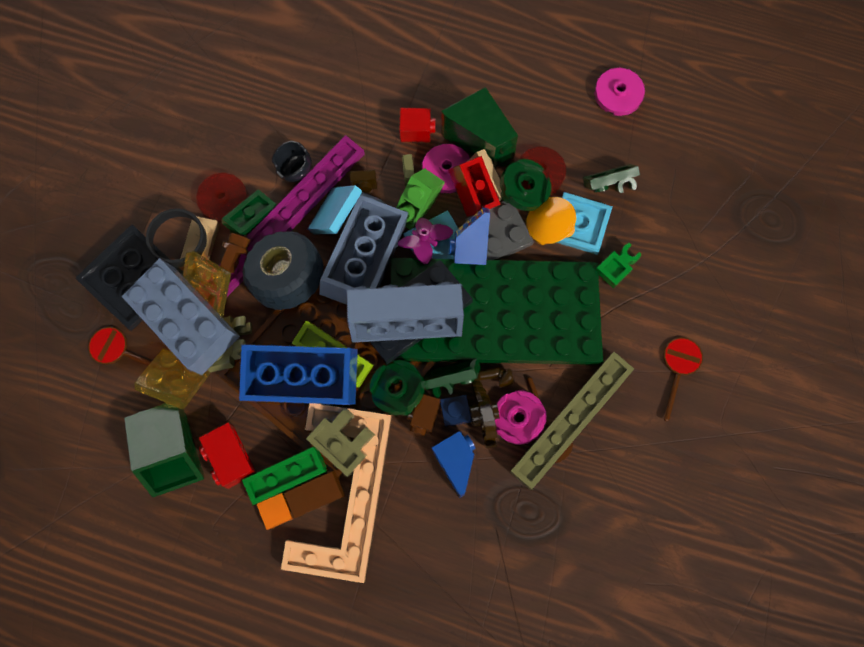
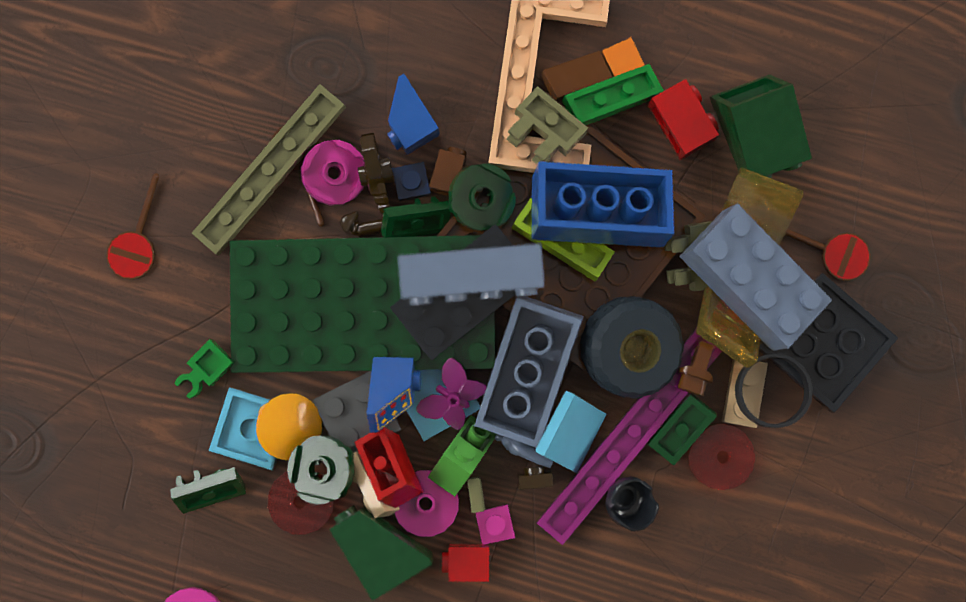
camera: 175 degrees right, 10 degrees up
(393, 152) = (495, 524): none -> dark pink plate

